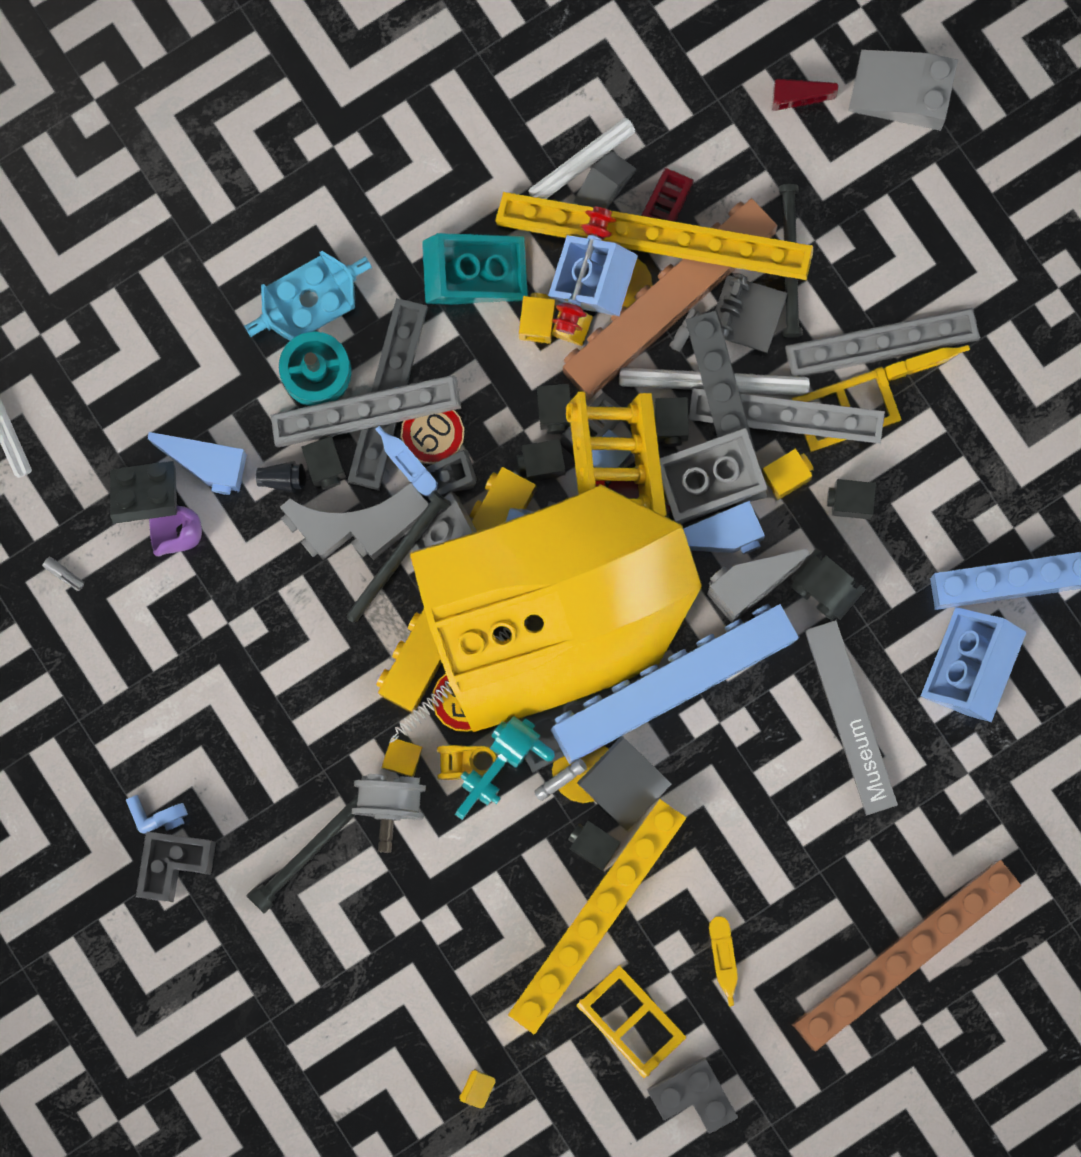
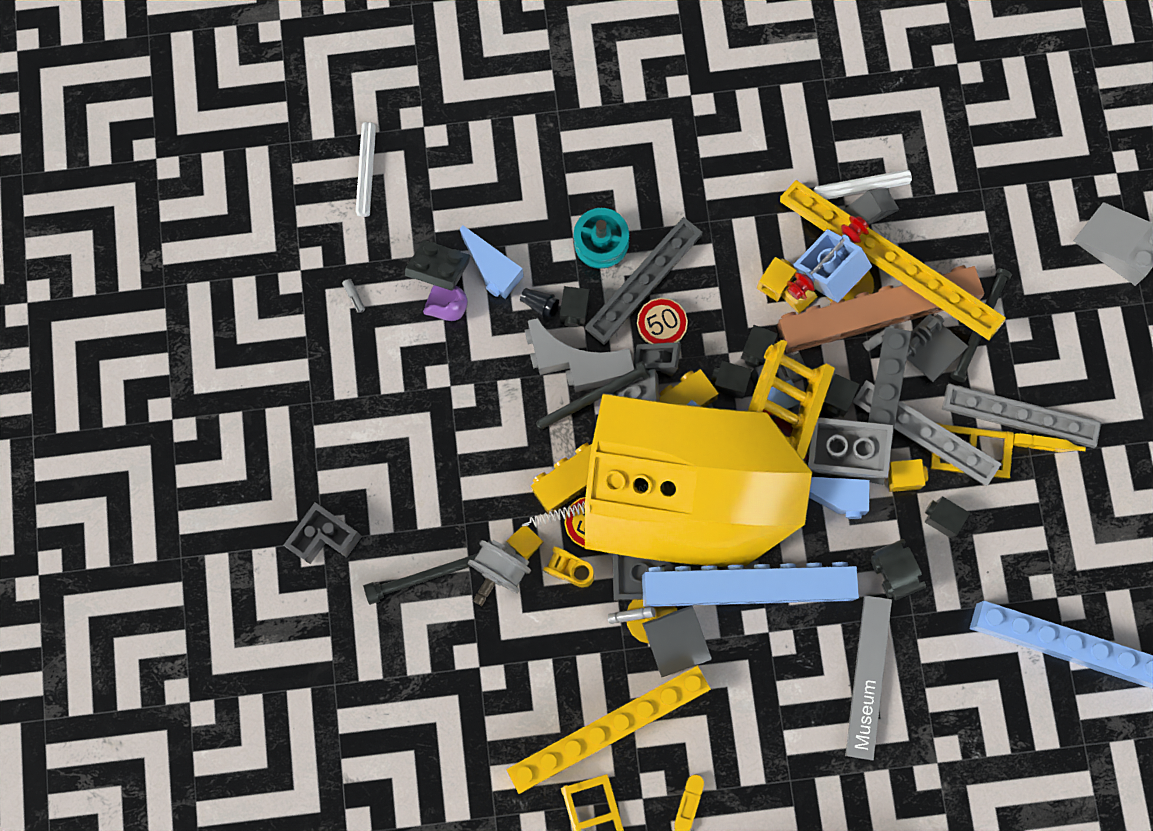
camera: 25 degrees right, 5 degrees down
(170, 817) = (338, 502): light blue plate -> none
(323, 276) = (638, 178): medium azure plate -> none
(366, 411) = (623, 284): light grey tile -> none
(408, 463) = (634, 334): light blue piece -> none
(474, 268) = (748, 222): teal slope -> none
(477, 1089) = (457, 813): yellow slope -> none
(512, 745) = (608, 571): teal piece -> none
(593, 844) = (632, 675): pearl dark grey brick -> none
(675, 179) = (923, 229): dark red slope -> none
(692, 379) = (865, 373): white axle -> none
(749, 582) = (842, 539): light grey slope -> none
(797, 93) = (1044, 210): dark red slope -> none
(973, 663) = (981, 683): light blue slope -> none

